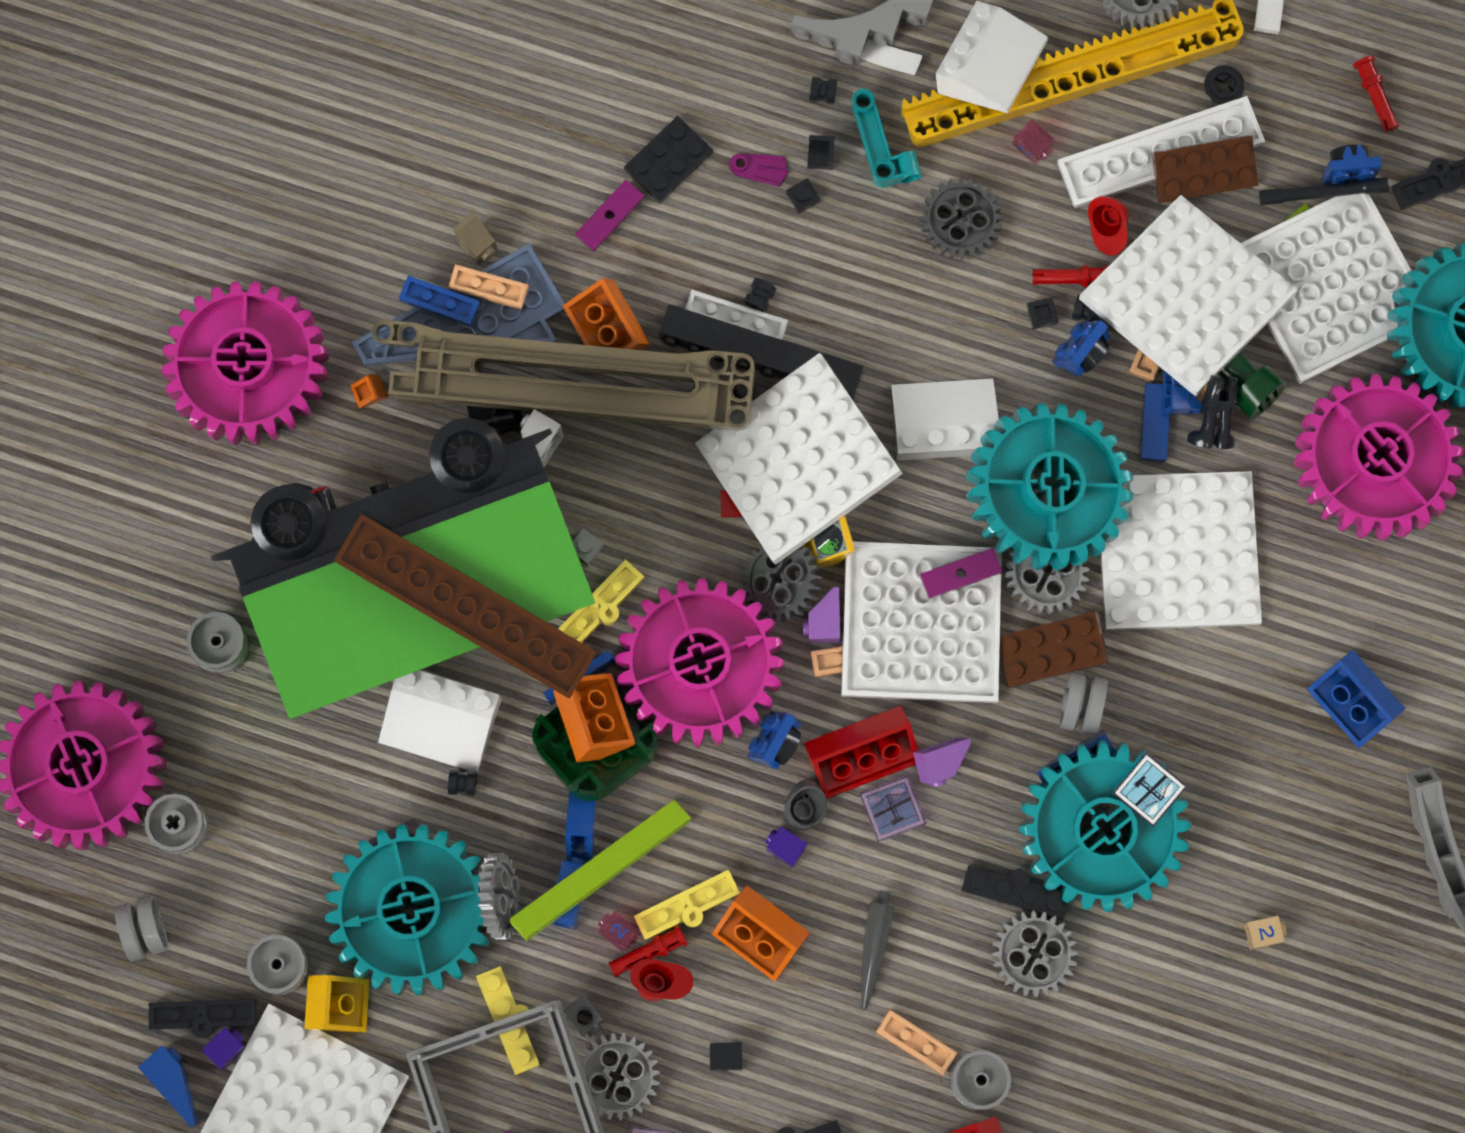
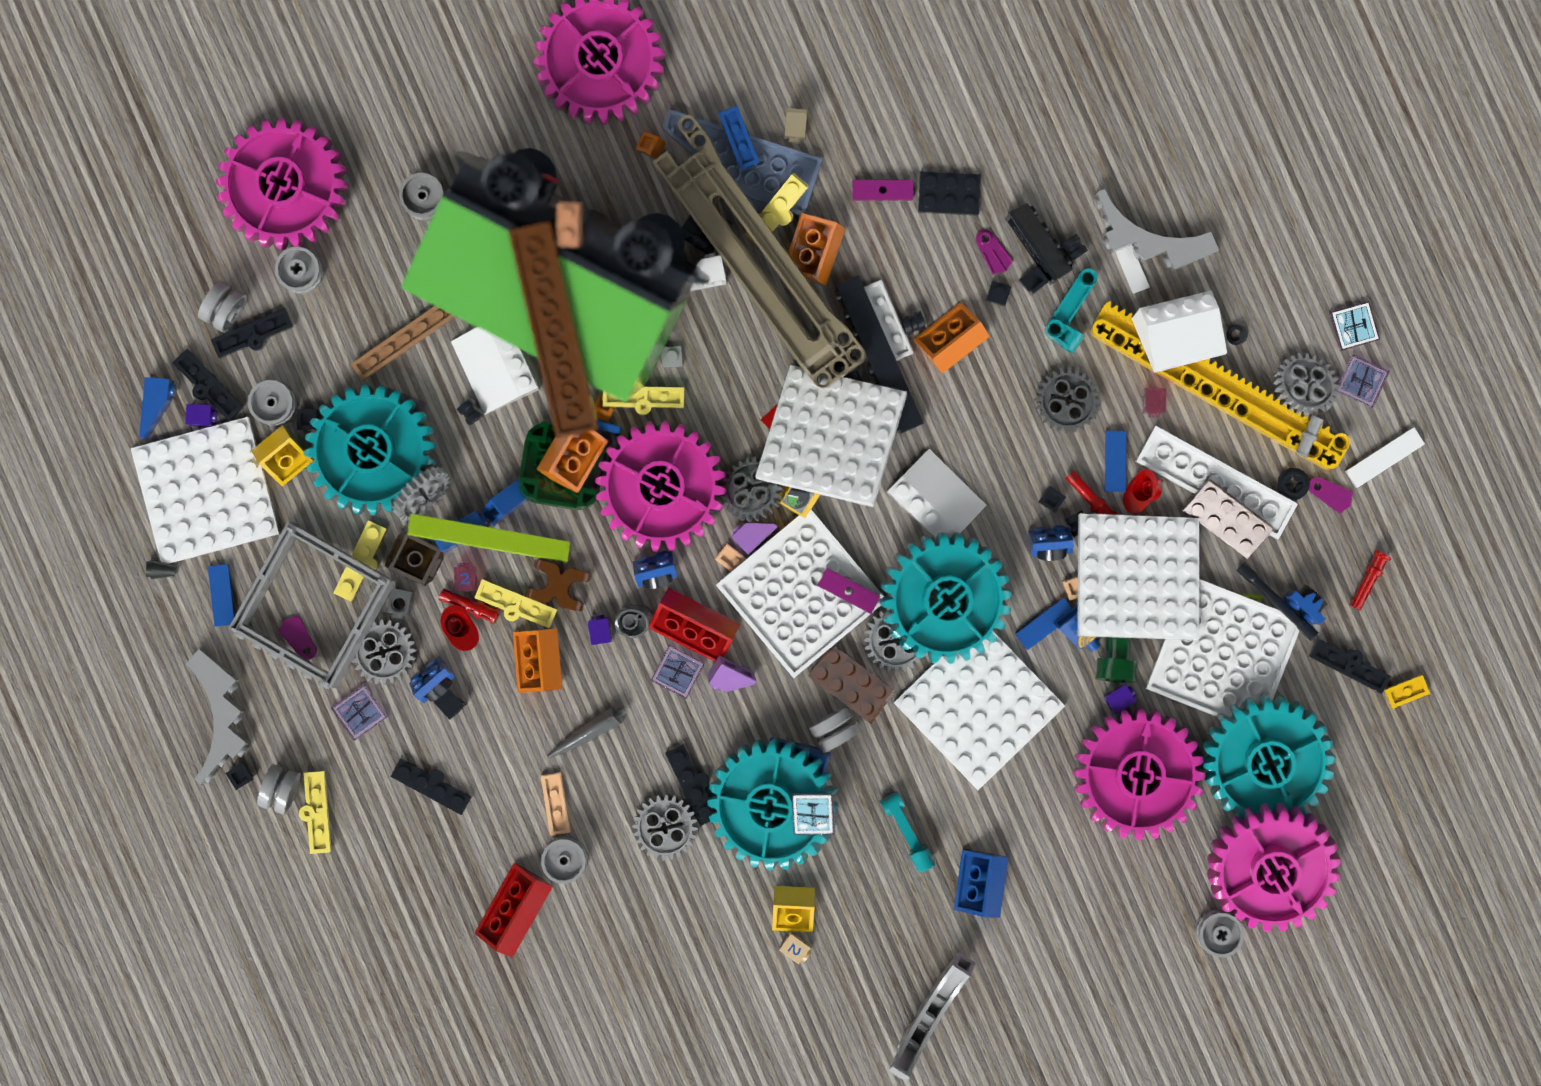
camera: 45 degrees right, 10 degrees up
(194, 926) = (252, 334): none -> black hinge
(323, 949) = (304, 417): none -> black plate
(336, 781) = (401, 342): none -> medium nougat plate
(379, 499) = (570, 224): none -> nougat brick
(488, 287) = (772, 157): light nougat tile -> none
(538, 319) = (778, 209): none -> light yellow hinge
(553, 963) = (414, 558): none -> dark brown slope
(688, 1053) = (432, 681): none -> blue piece
(706, 847) = (558, 585): none -> reddish brown piece
(789, 118) = (1038, 243): none -> black slope
(805, 272) = (951, 337): none -> orange slope
(1045, 12) = (1243, 334): none -> black piece
(1058, 226) = (1115, 461): none -> blue tile
(1193, 28) = (1309, 436): none -> light grey pin
(1214, 402) = (1083, 649): black piece -> none
(1224, 900) = (793, 909): none -> yellow slope
(1265, 60) = (1331, 494): none -> magenta piece
(1279, 732) = (920, 855): none -> teal piece
(1289, 414) = (1120, 698): none -> dark purple brick

